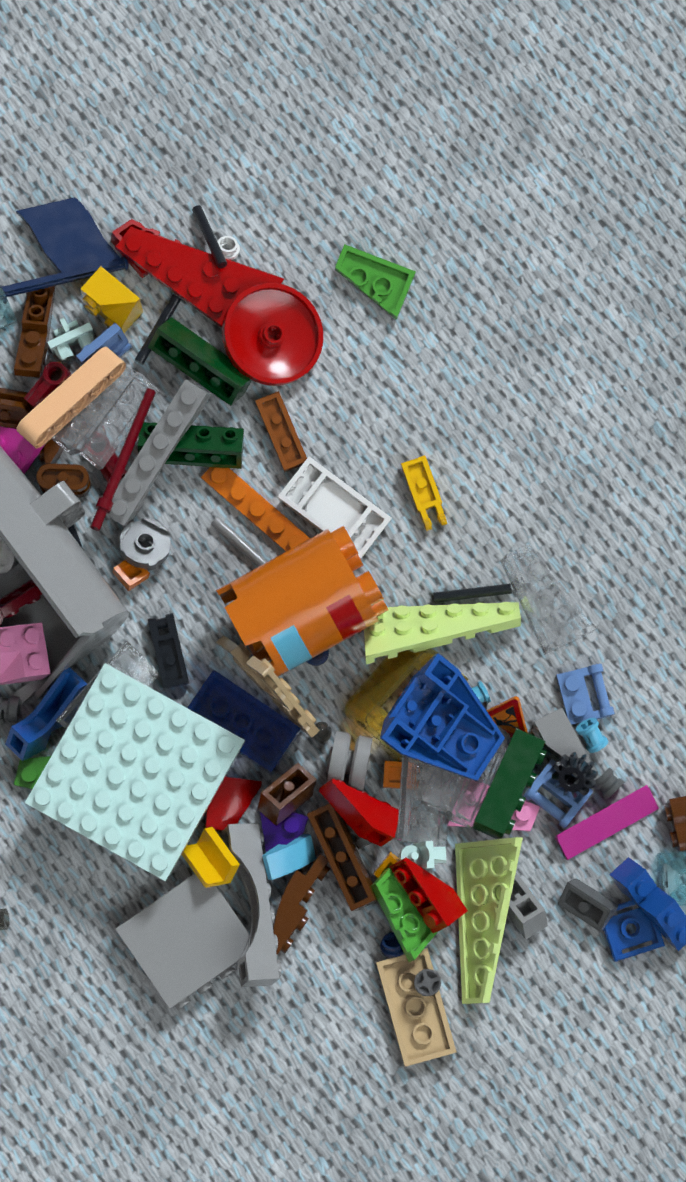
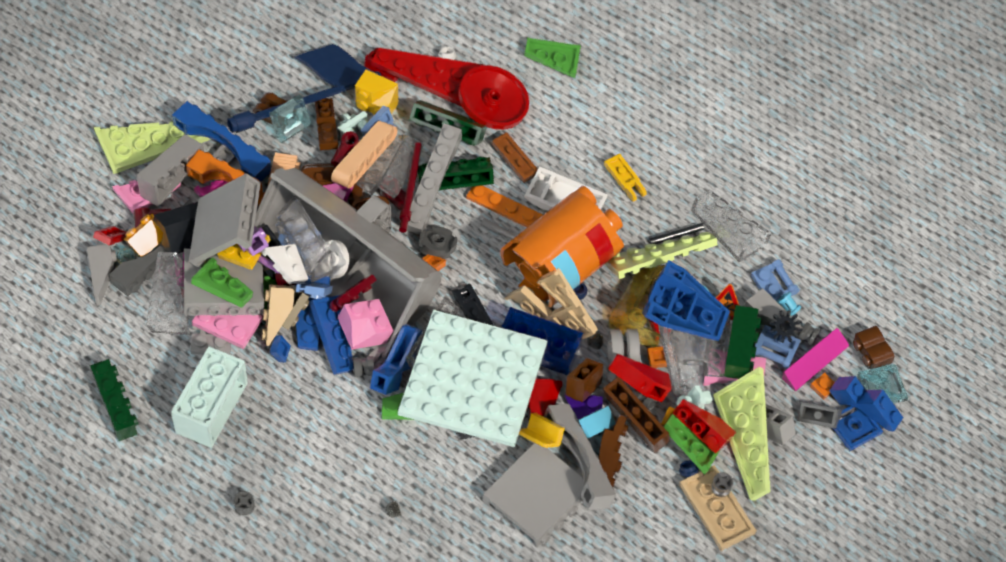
camera: 15 degrees left, 20 degrees down
(165, 315) = (407, 123): black bar -> none
(209, 236) = (429, 44): black bar -> none
(605, 861) = (822, 385): none -> orange plate

